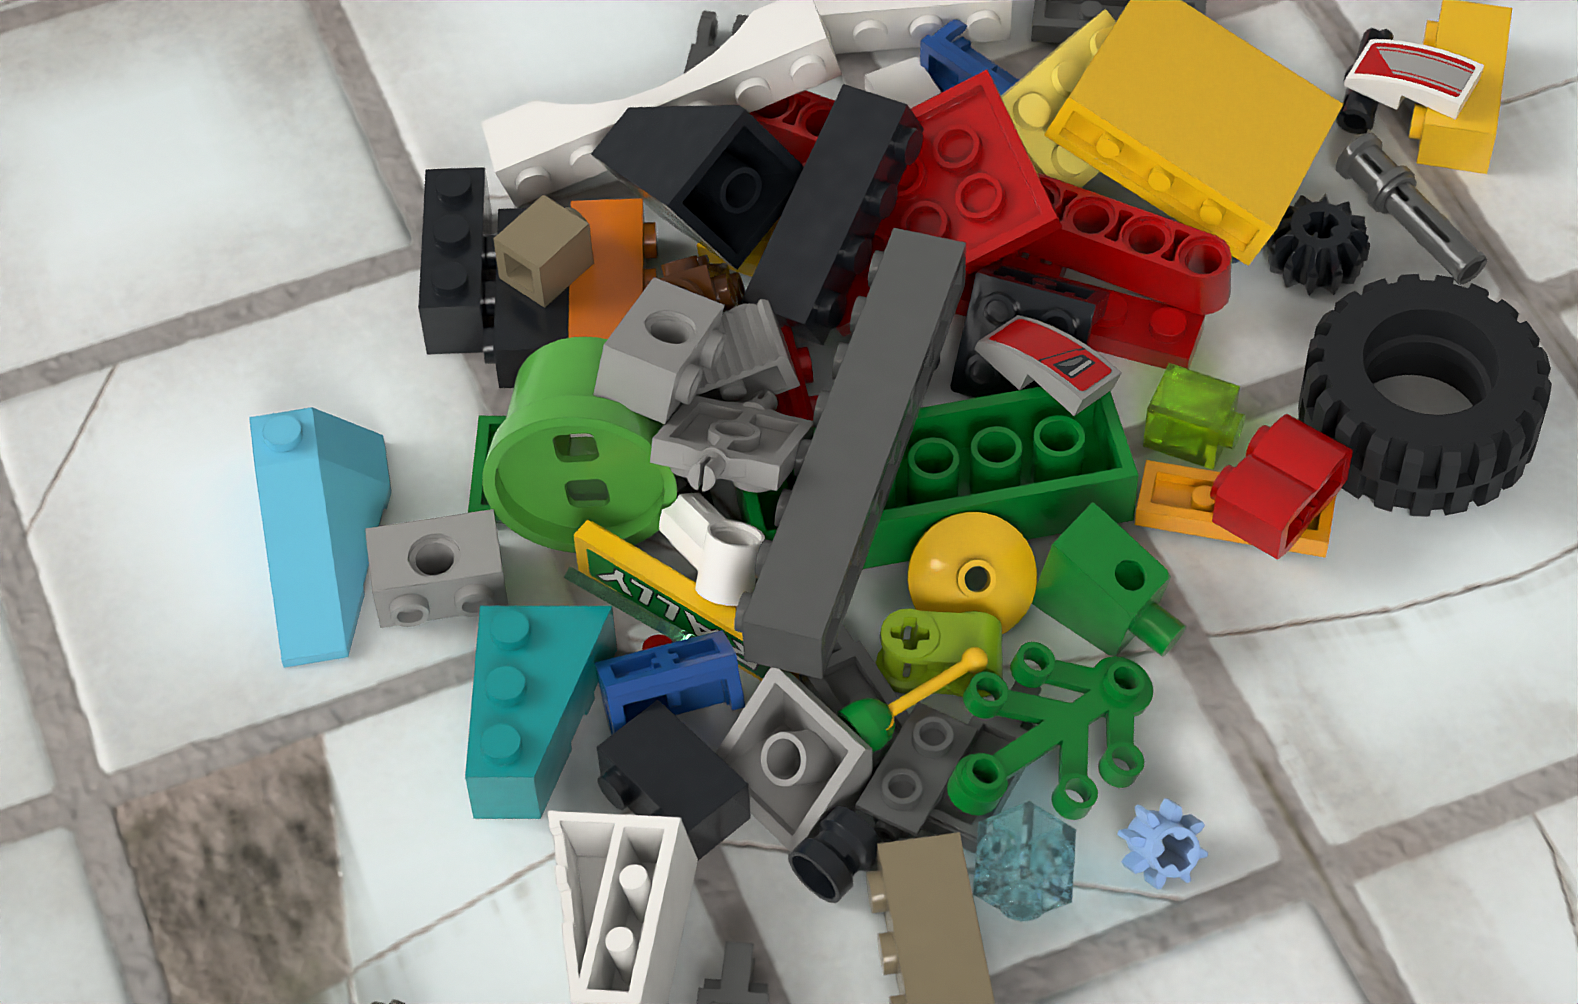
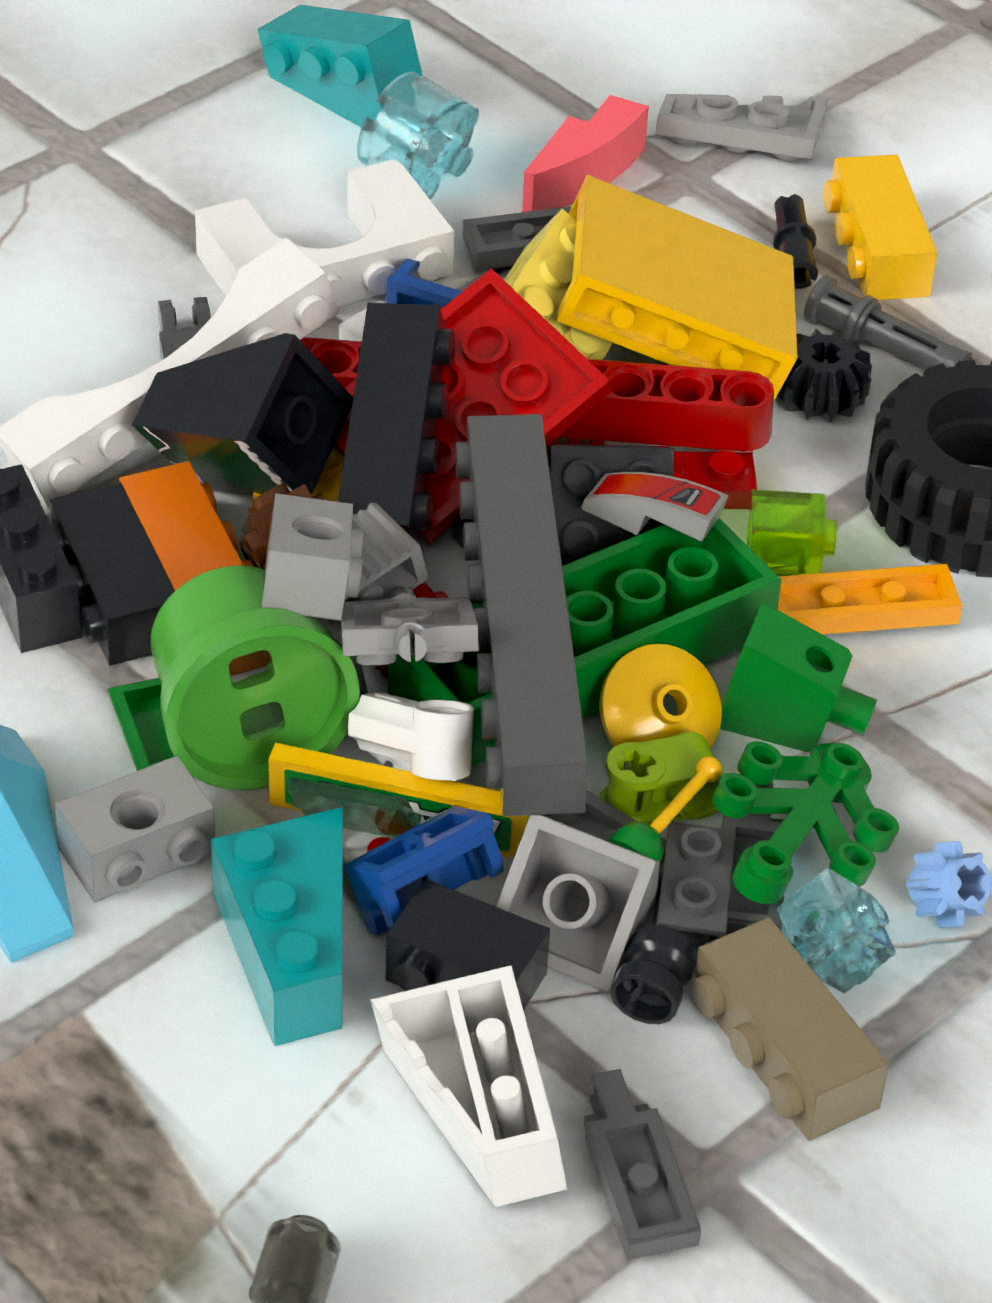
camera: 25 degrees left, 10 degrees down
(544, 250) = (123, 517): dark tan brick -> none
(1279, 485) = (903, 563): red brick -> none
(1416, 71) = (826, 218): slope -> none

